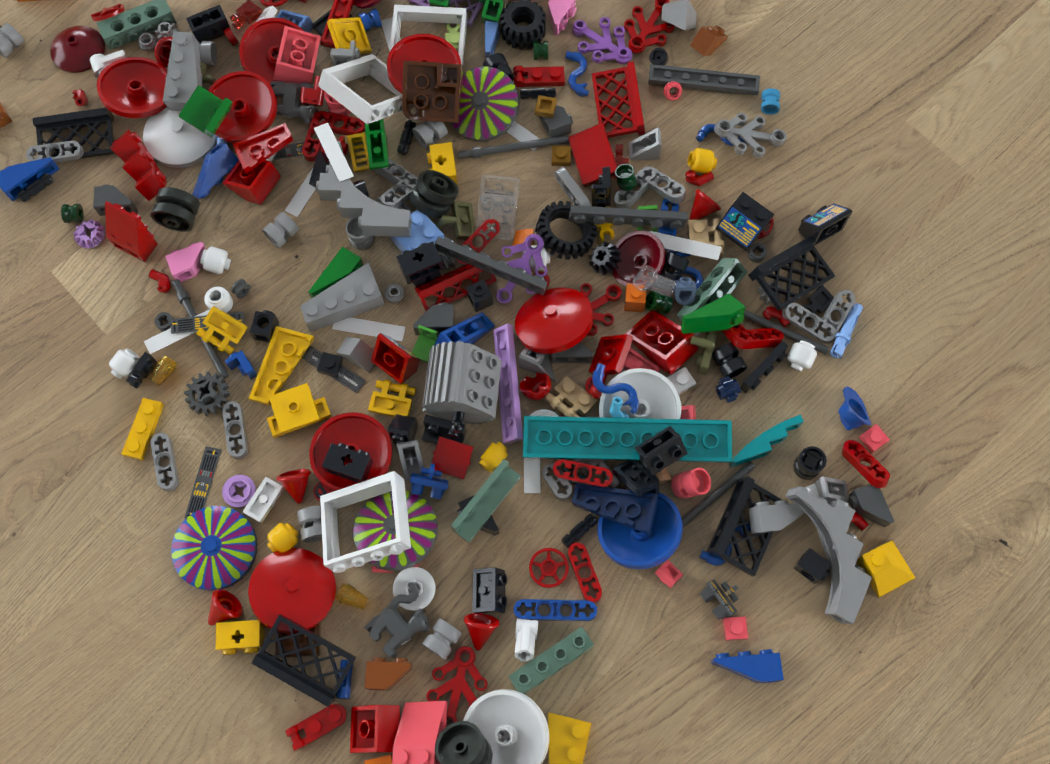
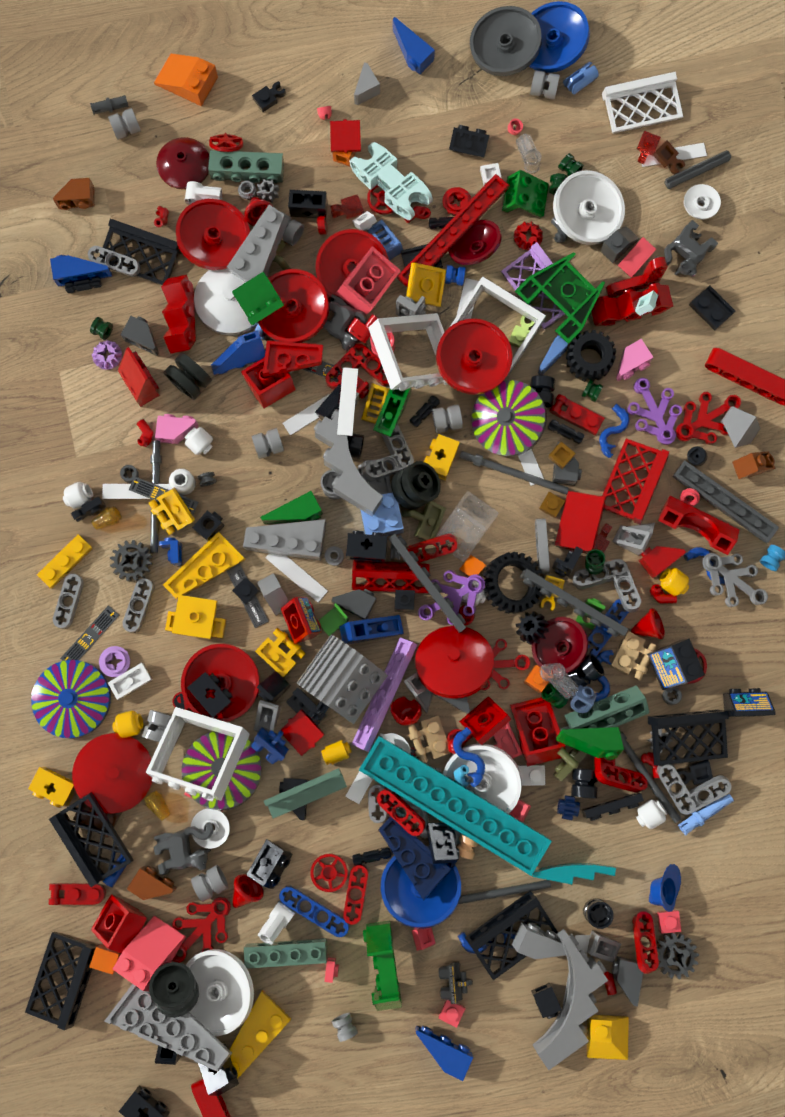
camera: 30 degrees right, 10 degrees up
(224, 607) = (54, 755): red hat -> none
(295, 483) = (162, 680): red hat -> none
(432, 90) = (467, 388): reddish brown slope -> none
(602, 652) = (331, 970): none -> coral plate
(645, 698) = (345, 1027): none -> light grey wheel
(659, 618) = (380, 946): none -> green wedge
(661, 450) = (474, 836): black brick -> none
(678, 149) = (659, 558): none -> red slope
(689, 246) = (611, 655): white sticker -> none
(691, 483) = (486, 873): coral wheel -> none
(697, 104) = (718, 533): none -> red arch
(907, 457) = (684, 952): none -> dark grey gear

